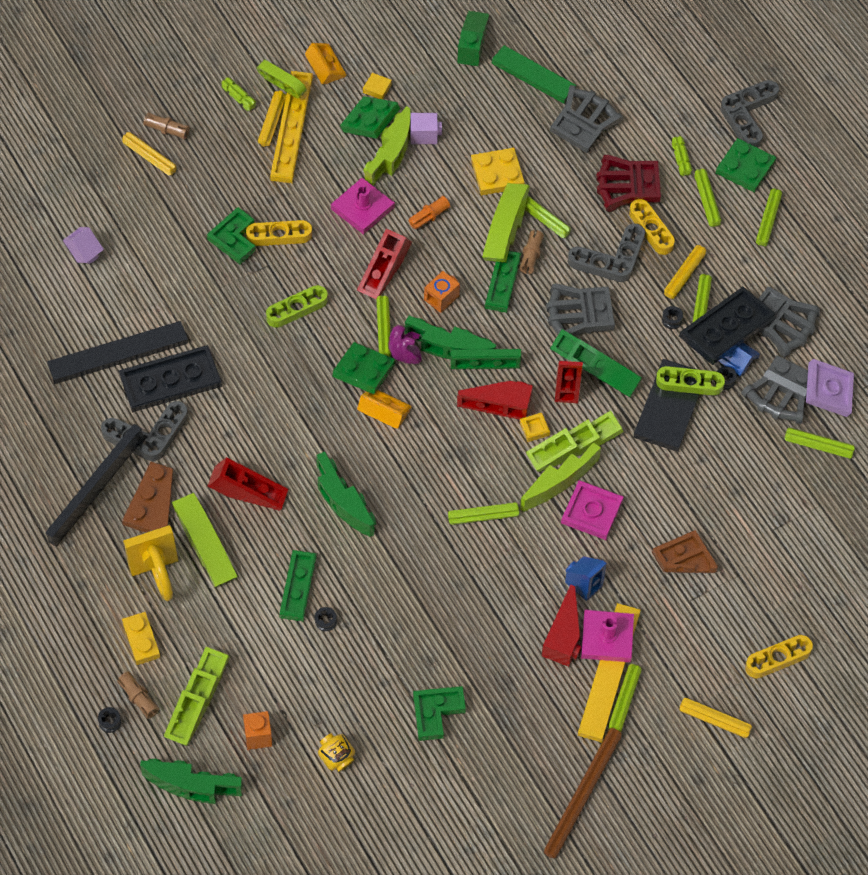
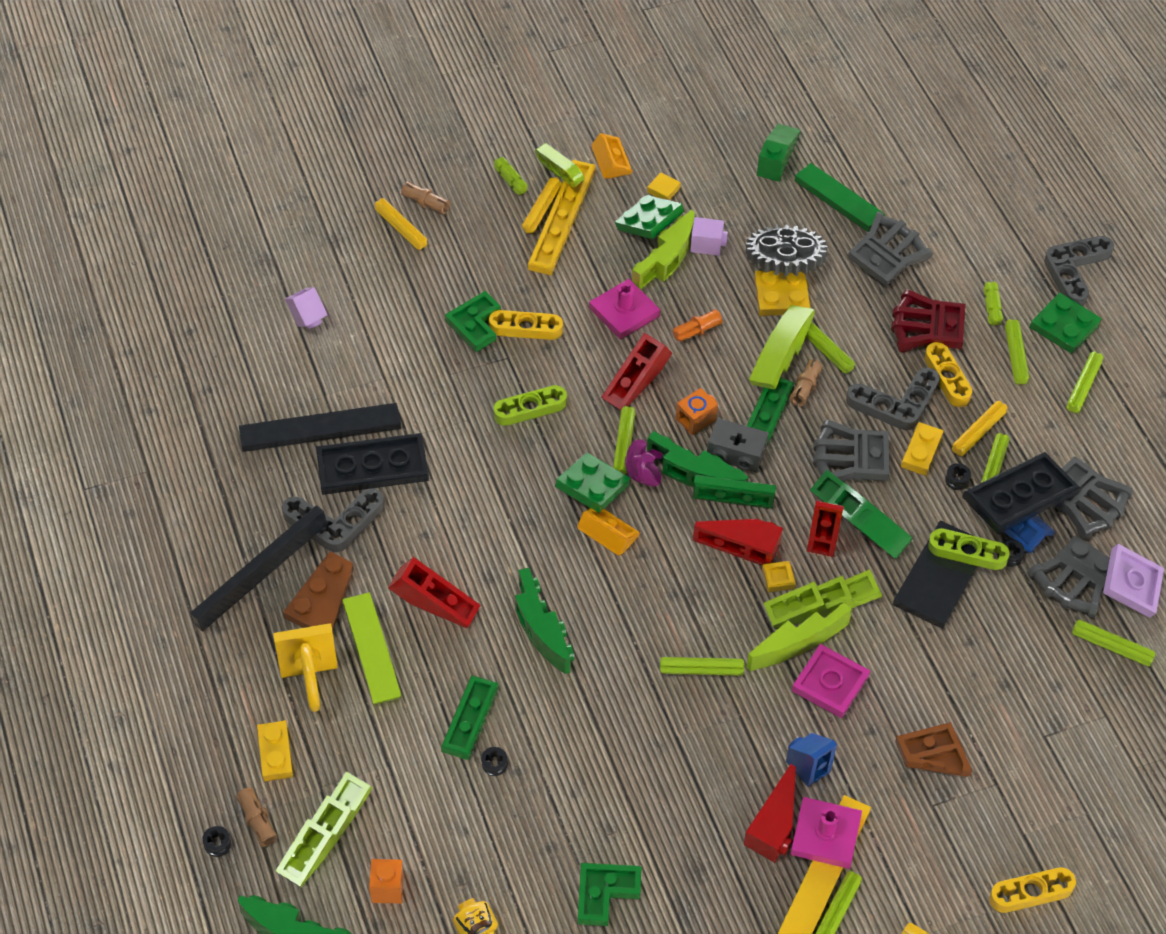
camera: 10 degrees right, 5 degrees down
(482, 316) = (738, 444): none -> dark grey brick
(495, 132) = (786, 250): none -> dark grey gear
(639, 297) = (922, 448): none -> yellow plate

